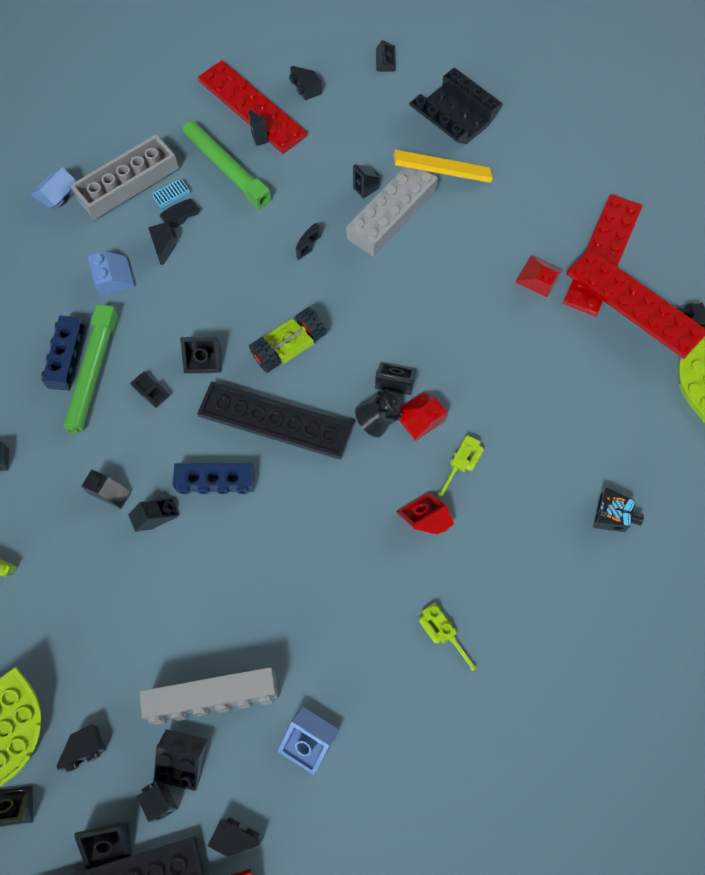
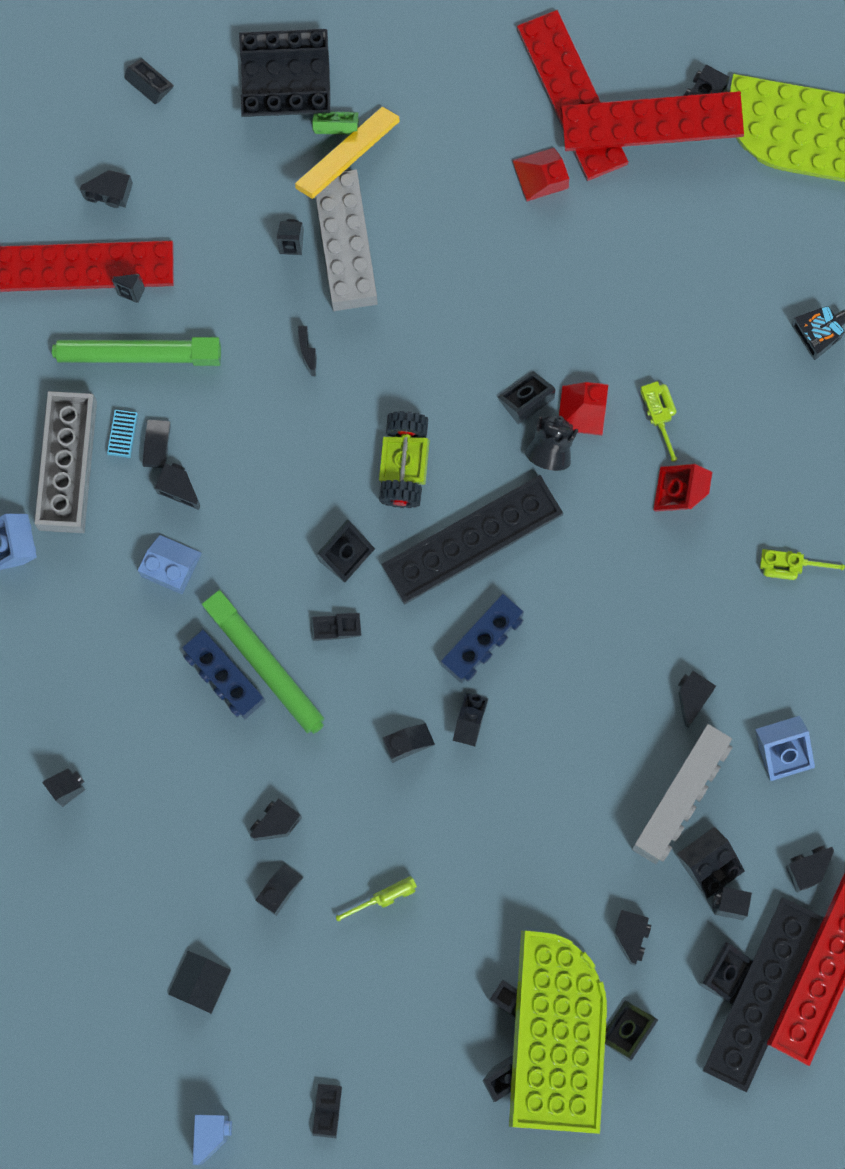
camera: 45 degrees left, 10 degrees up
(290, 644) = (693, 695): none -> black slope
(453, 150) = (336, 123): none -> bright green bracket

